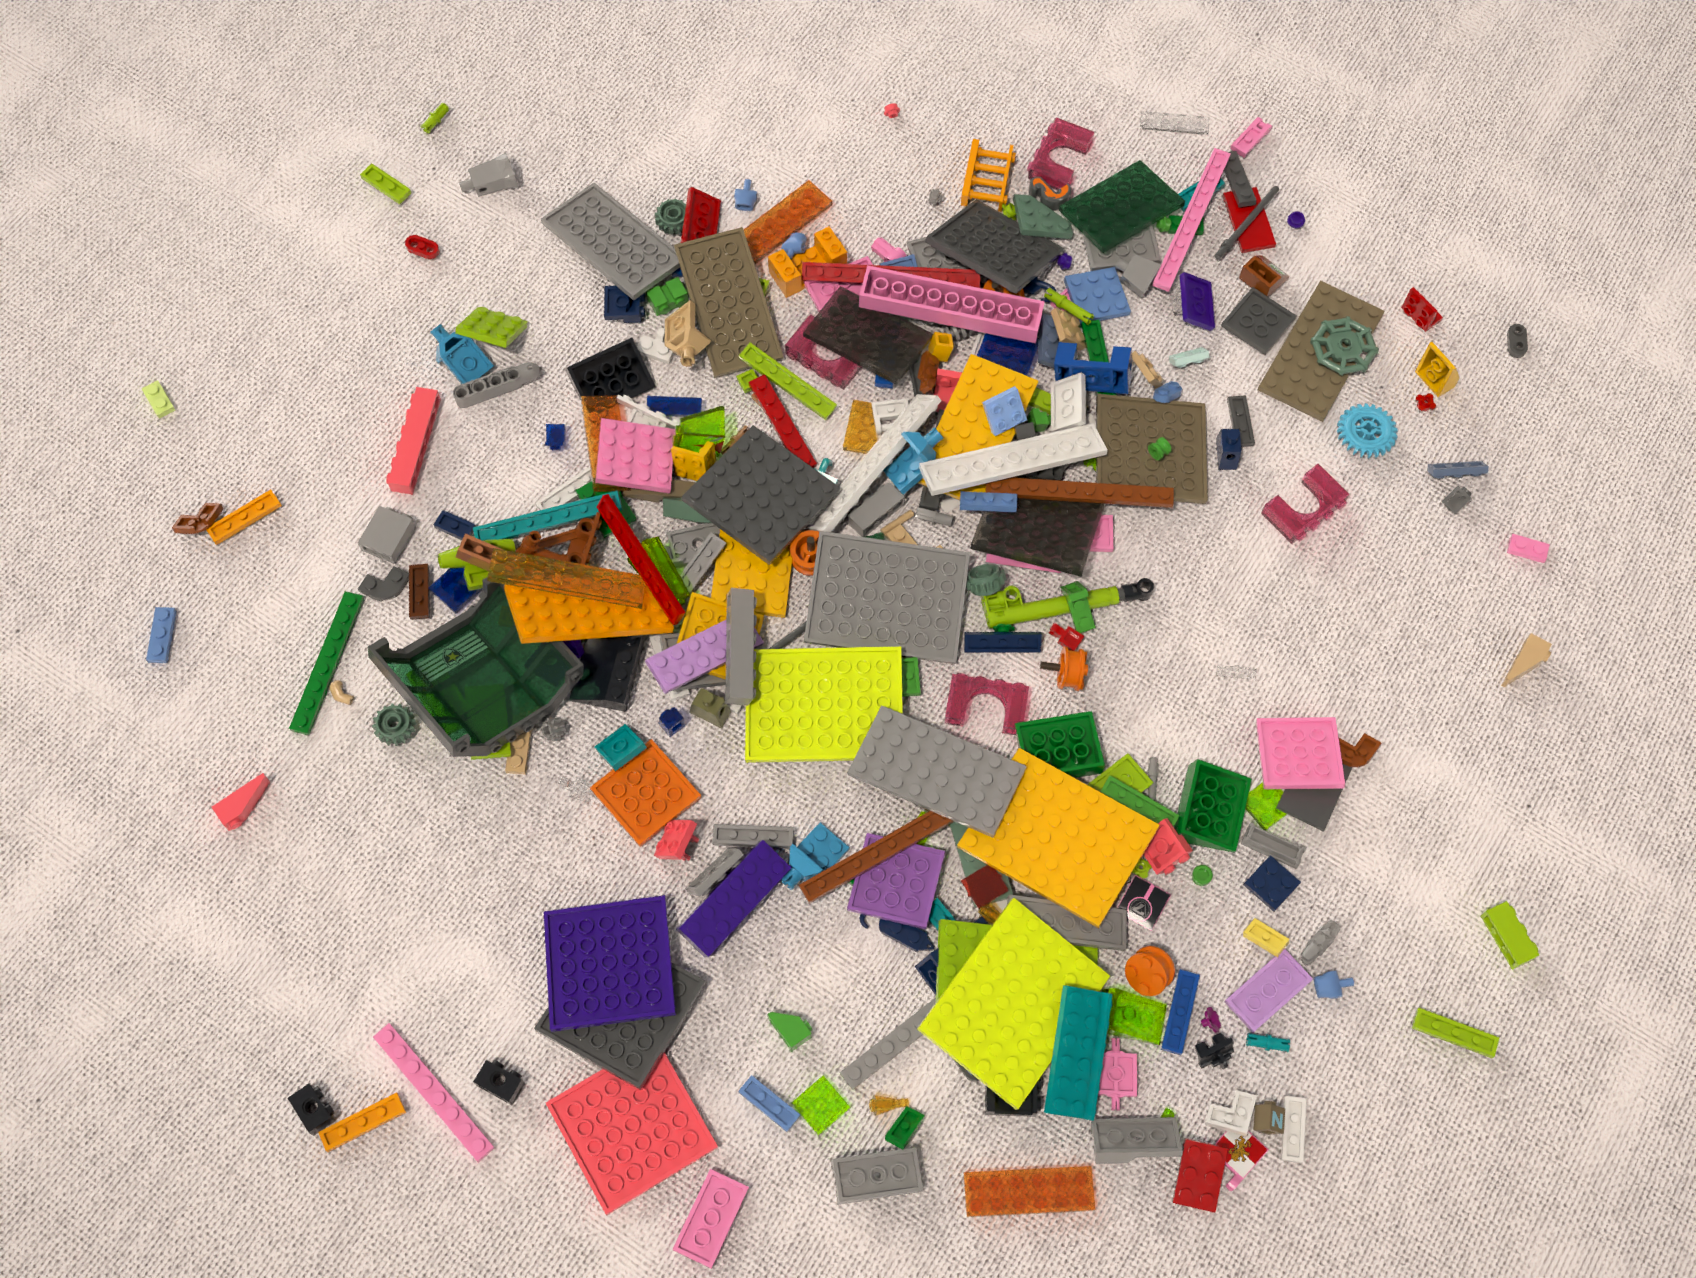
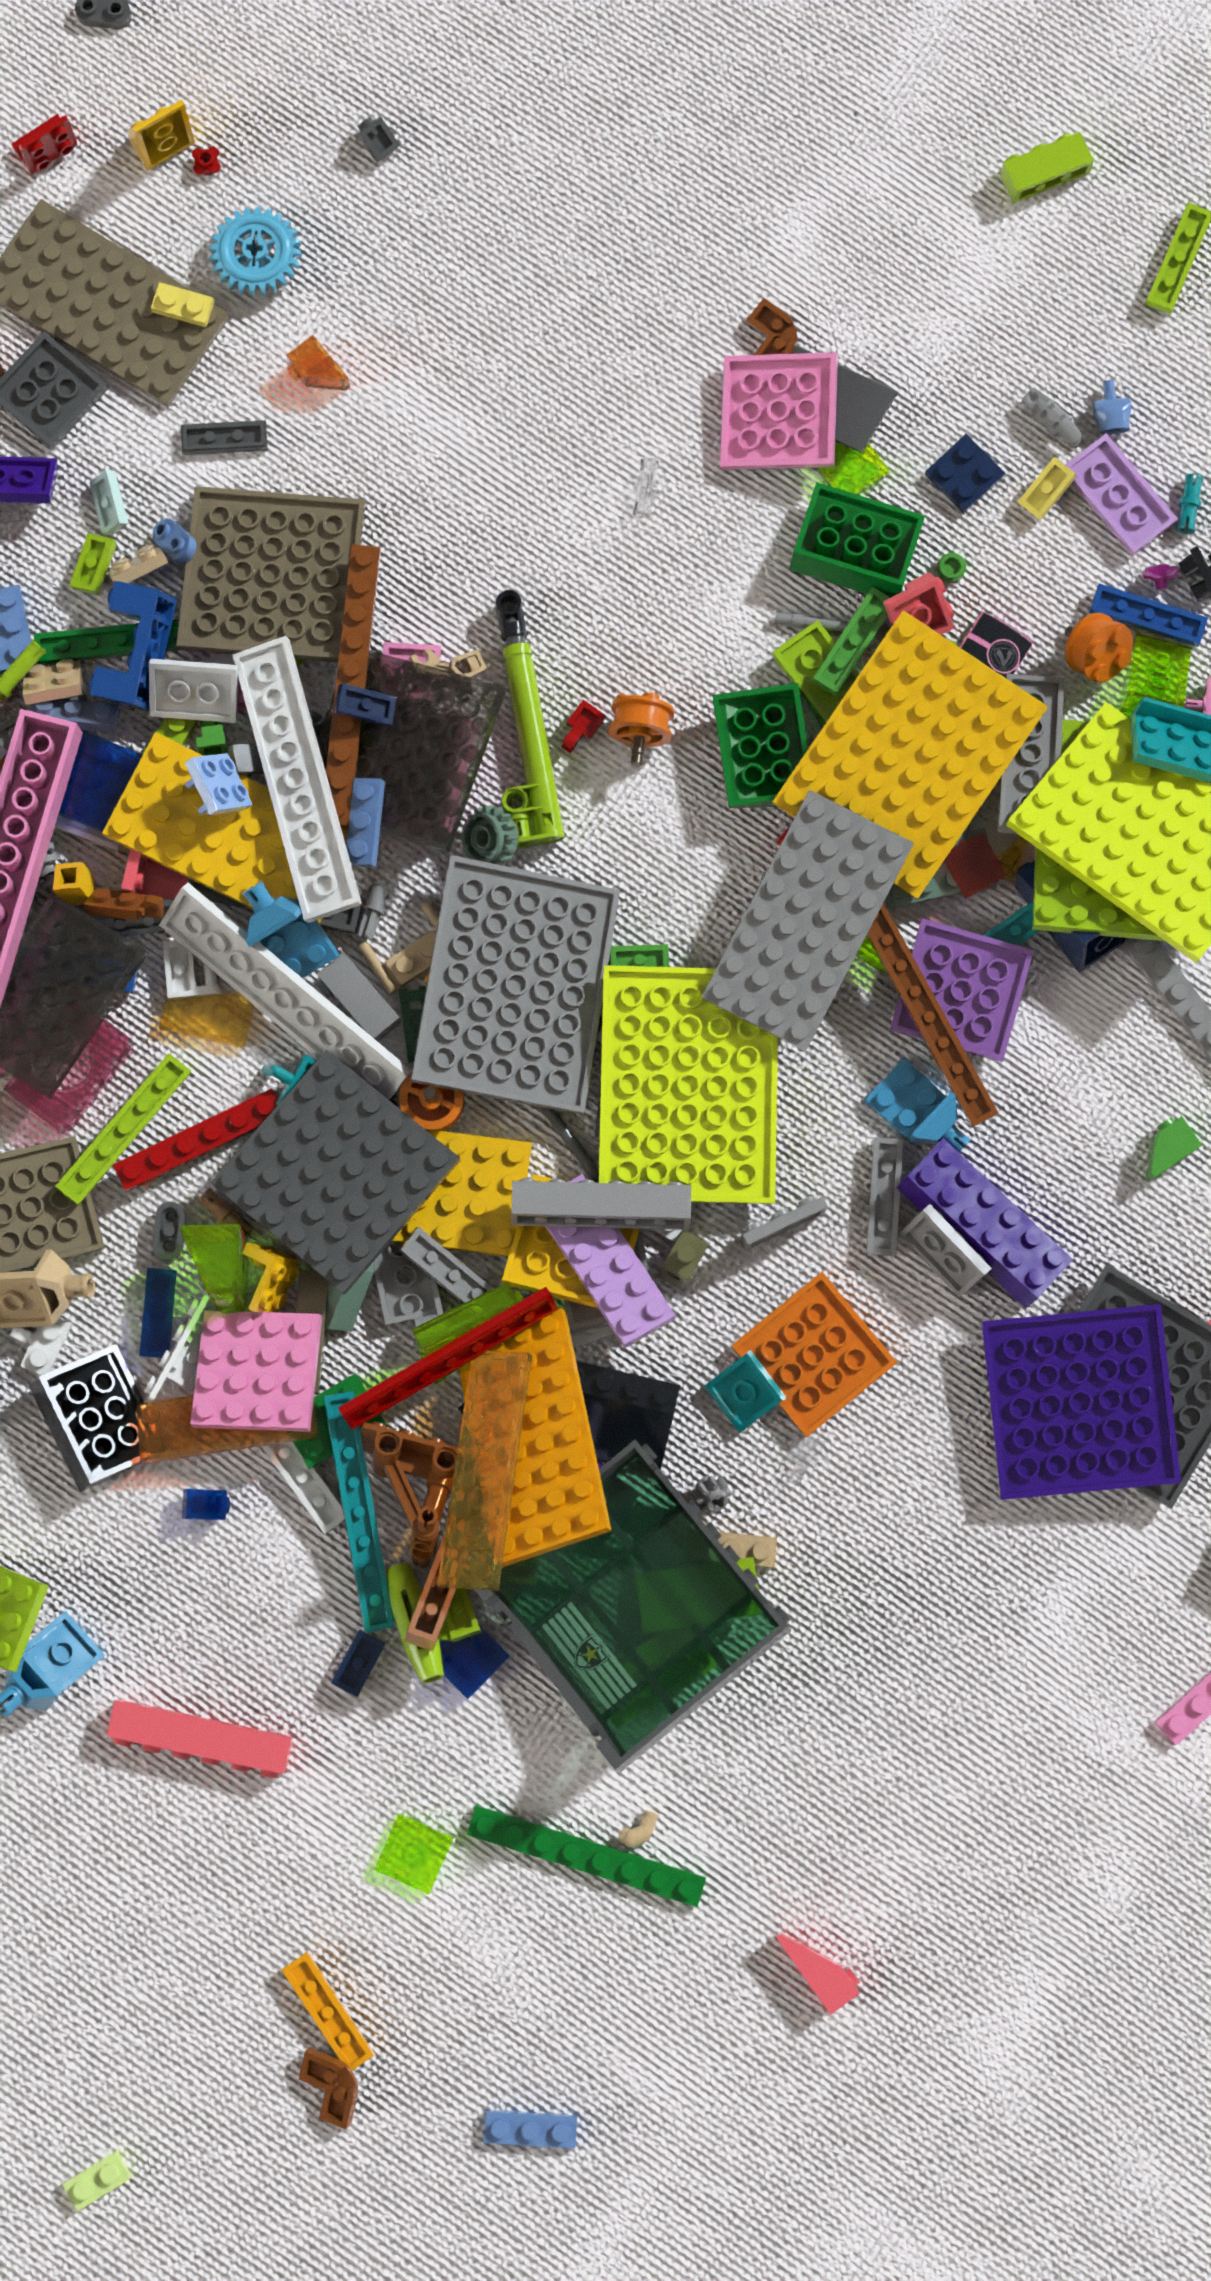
camera: 90 degrees left, 15 degrees up
(336, 563) = (414, 1853): none -> clear neon green plate
(386, 589) = (465, 1771): dark grey plate -> none
(387, 534) = (369, 1771): light grey brick -> none
(394, 734) = (708, 1753): sand green gear -> none
(419, 592) = (471, 1714): reddish brown plate -> none
(488, 386) = (88, 1559): light grey piece -> none
(669, 719) = (702, 1316): clear blue brick -> none
(675, 840) = (894, 1307): coral plate -> none
(730, 407) = (166, 1231): none -> dark grey plate
(732, 766) = (783, 1221): none -> light grey plate
(744, 378) = (114, 1195): lime plate -> none
(904, 934) = (1038, 978): dark blue plate -> none
(965, 688) = (665, 883): clear pink arch -> none
(1002, 642) = (588, 819): dark blue plate -> none
(1003, 628) = (569, 817): green plant -> none
(1064, 495) = (365, 705): none -> dark blue plate
(1078, 605) = (536, 702): bright green bracket -> none
(1096, 552) = (472, 662): none -> tan piece
(1151, 350) = (93, 564): none -> lime plate
(1159, 448) = (281, 559): bright green wheel -> none
(1228, 443) = (278, 459): dark blue torso -> none
(1270, 844) = (911, 465): light grey container -> none
(1294, 468) = (316, 367): none -> clear orange slope
(1295, 524) = (367, 320): clear pink arch -> none
(1324, 389) = (182, 304): none -> light yellow plate
(1339, 353) = (111, 280): sand green plate -> none
(1457, 469) = (325, 130): sand blue plate -> none
(1528, 548) = (458, 52): bright pink plate -> none
(1528, 658) = (635, 77): tan slope -> none

